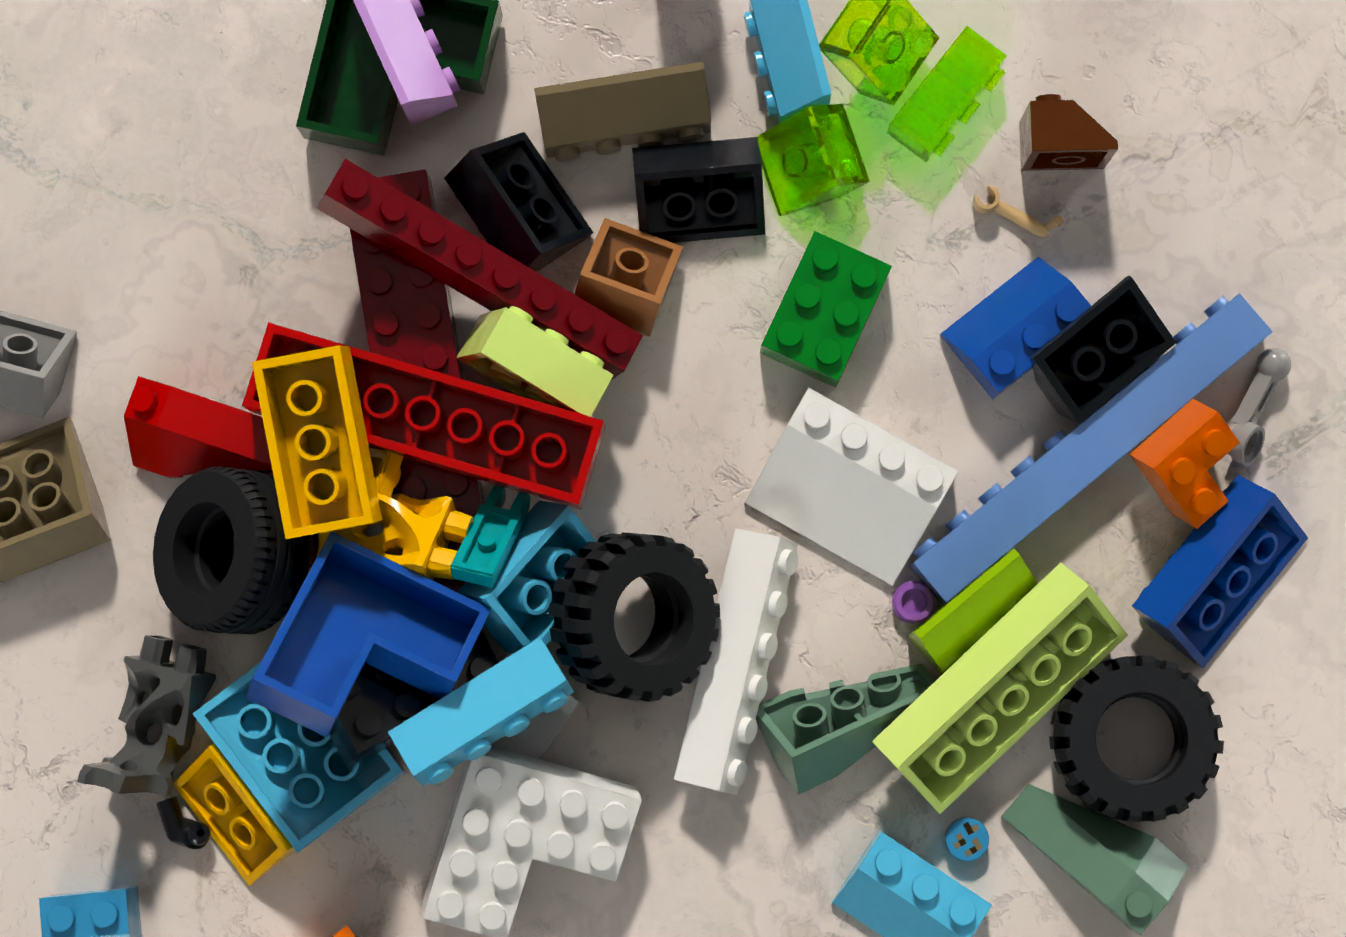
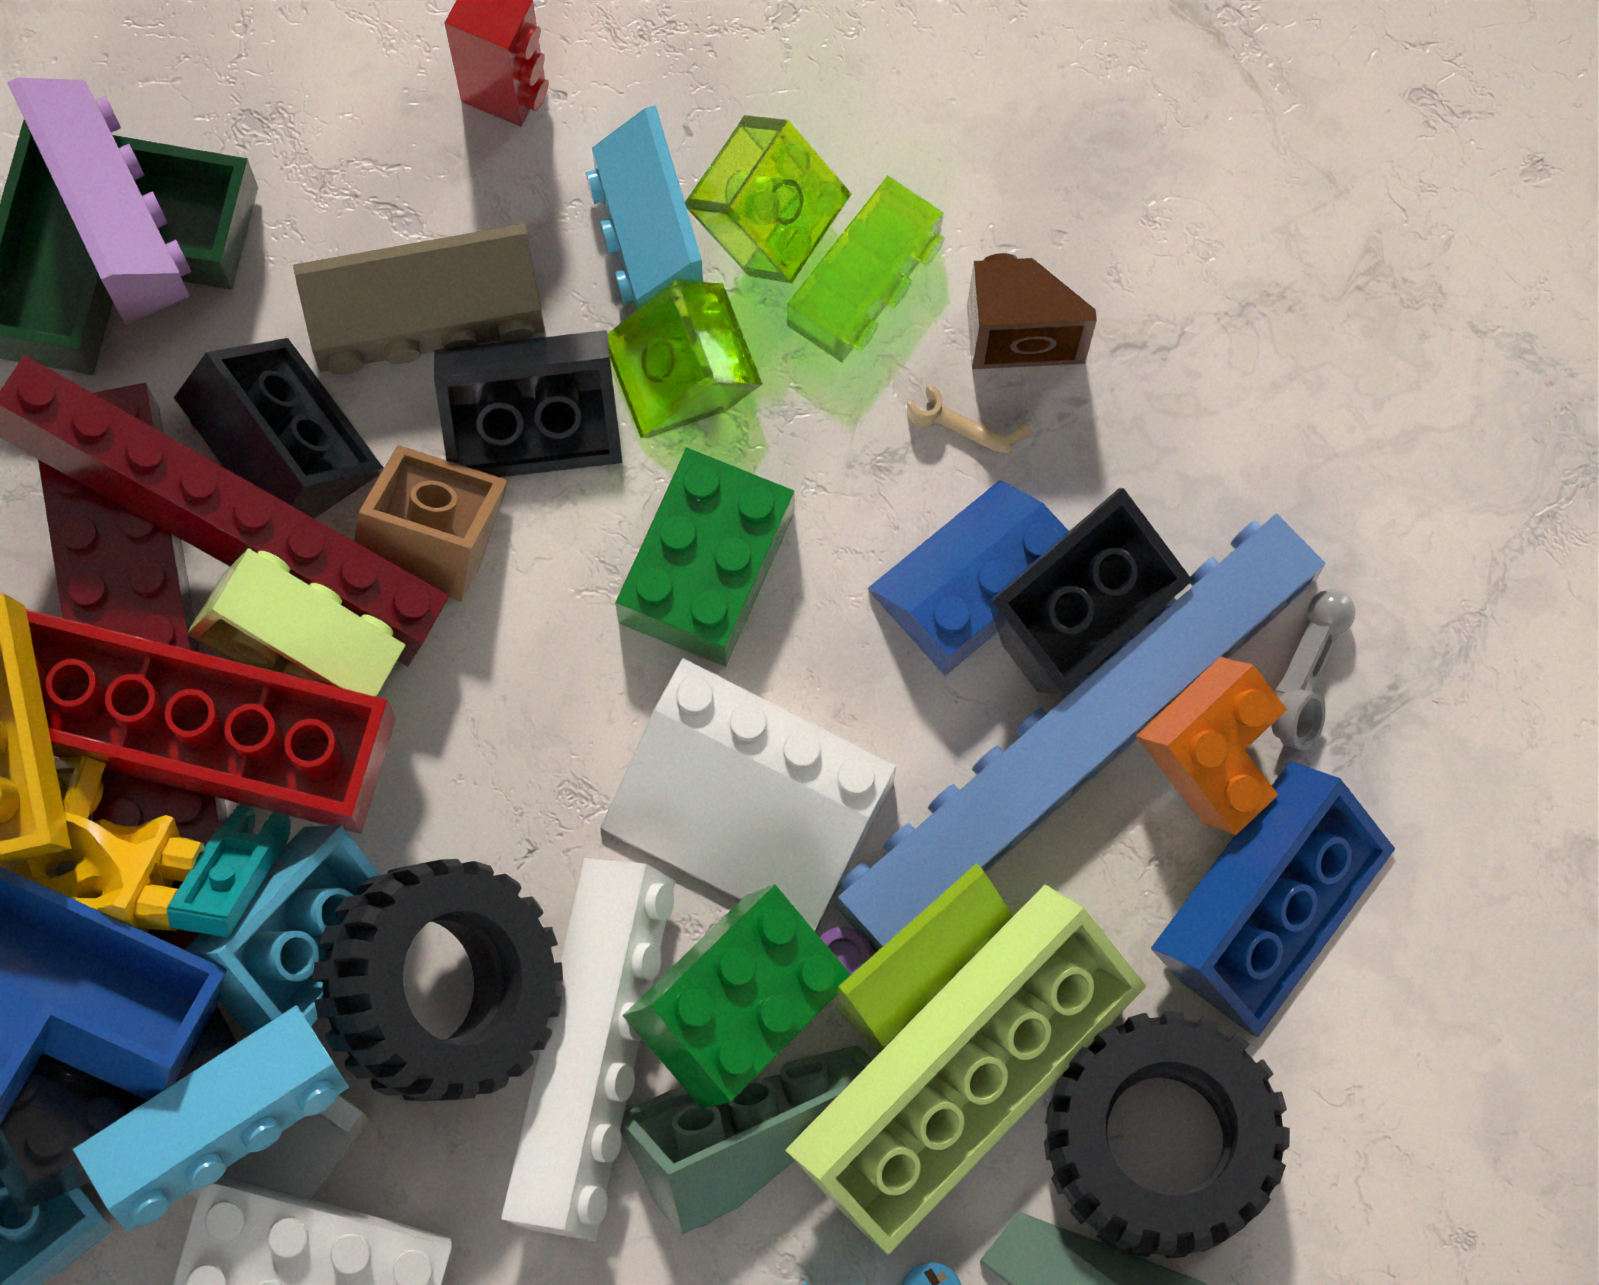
camera: 10 degrees left, 10 degrees down
(842, 632) = (738, 997): none -> green brick

